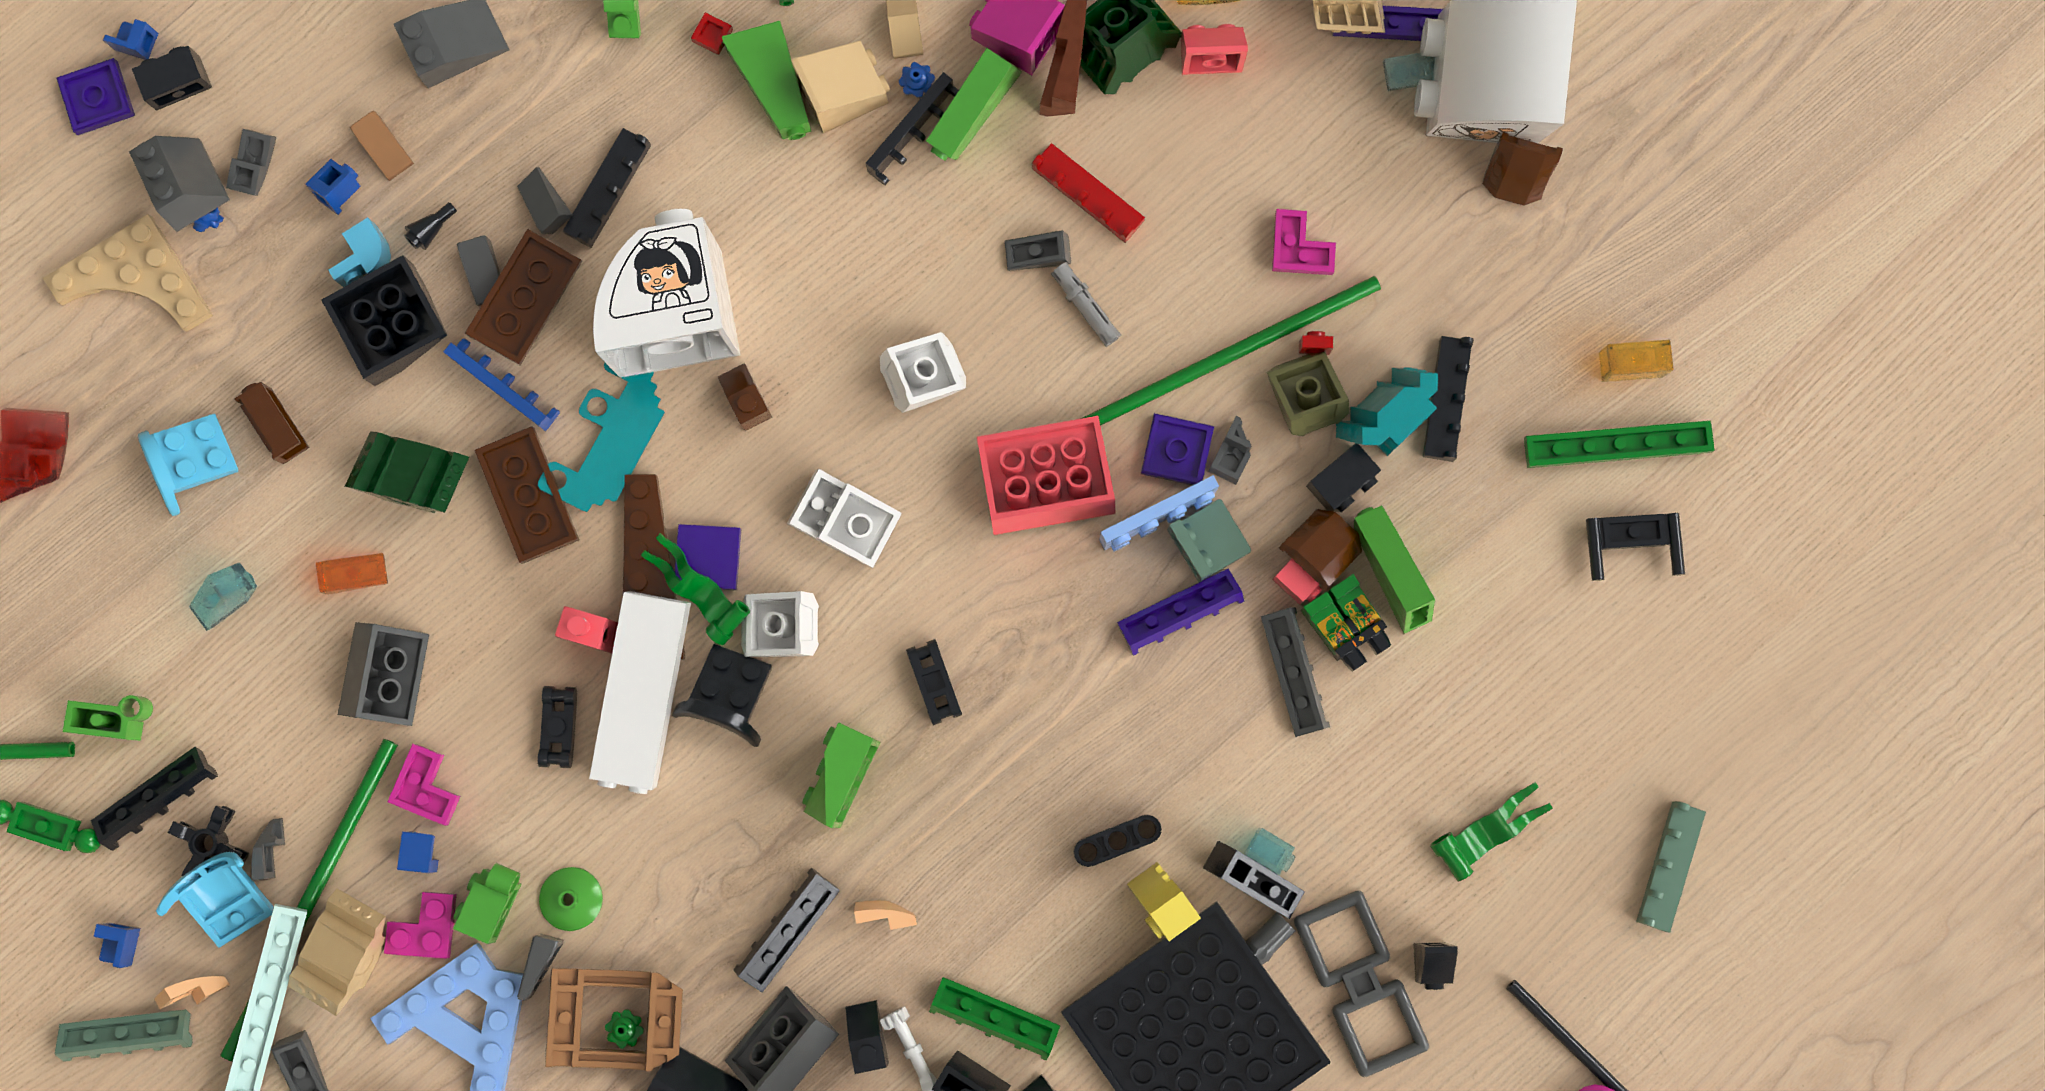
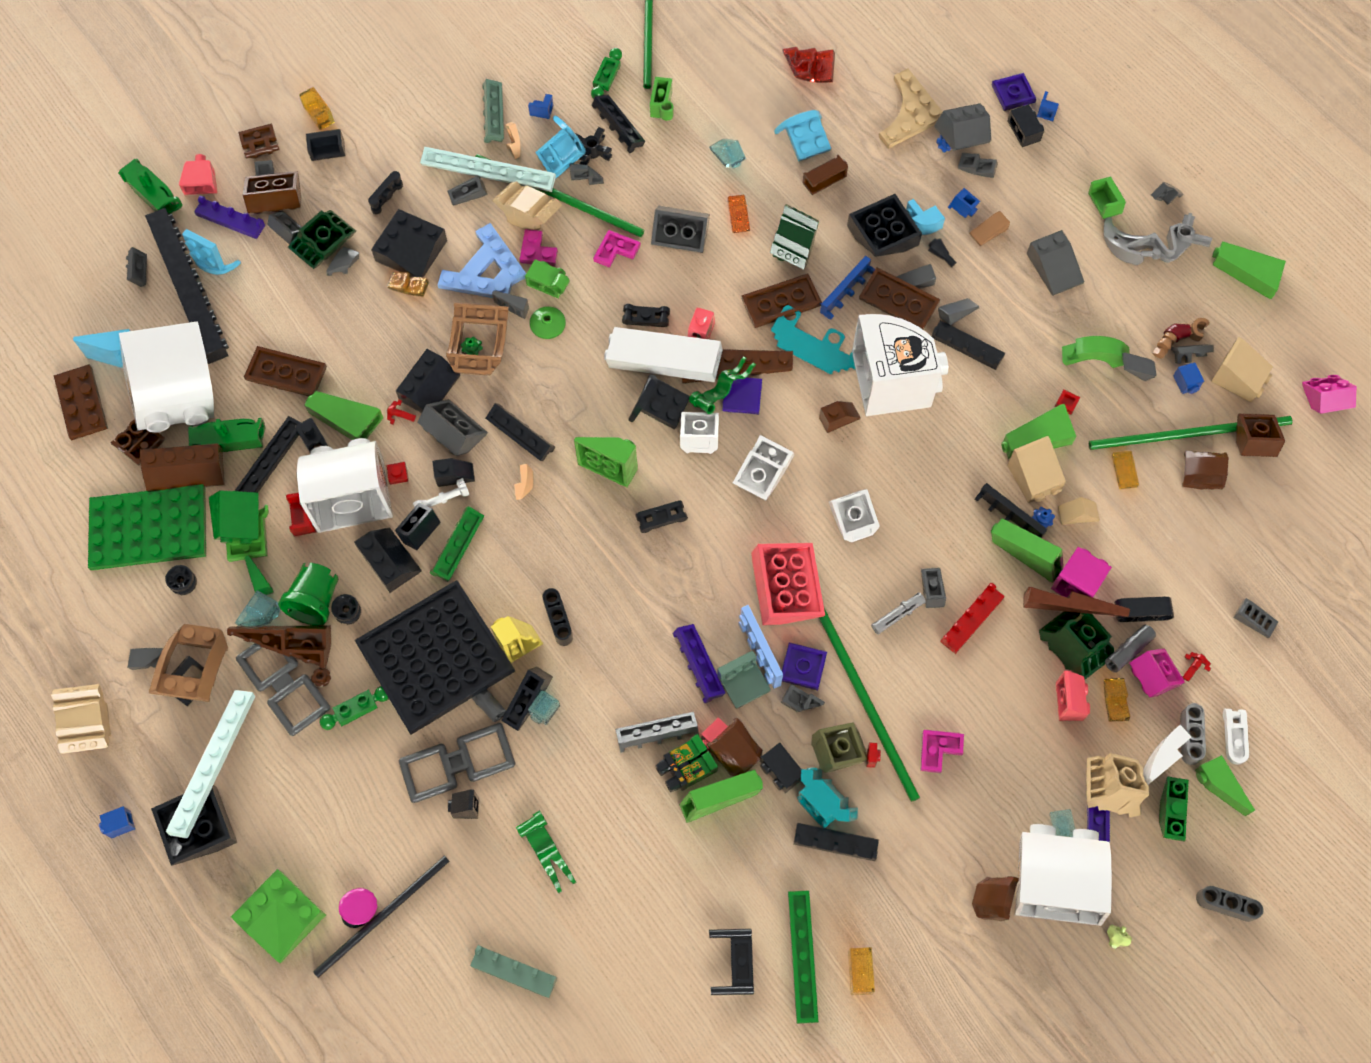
camera: 90 degrees right, 15 degrees down
(417, 853) = (578, 242): blue panel -> none

